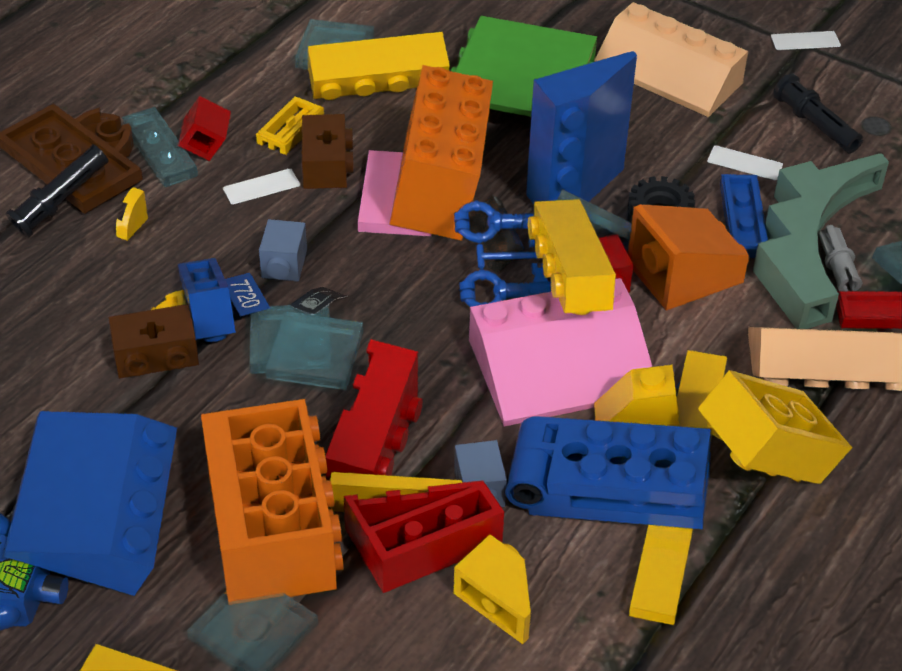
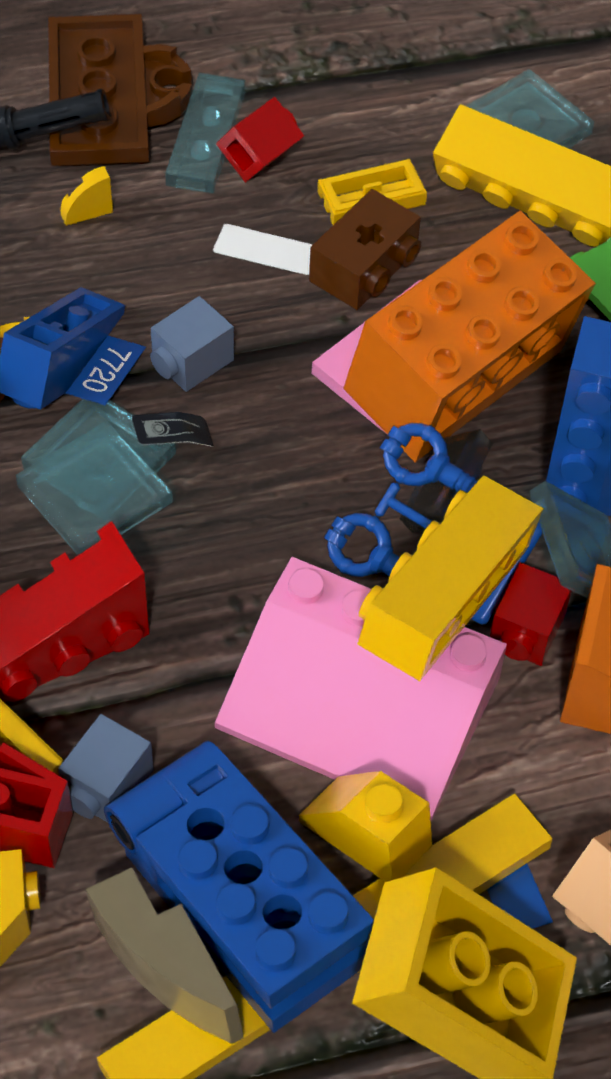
camera: 40 degrees right, 10 degrees up
(616, 531) = (164, 954): none -> dark tan slope

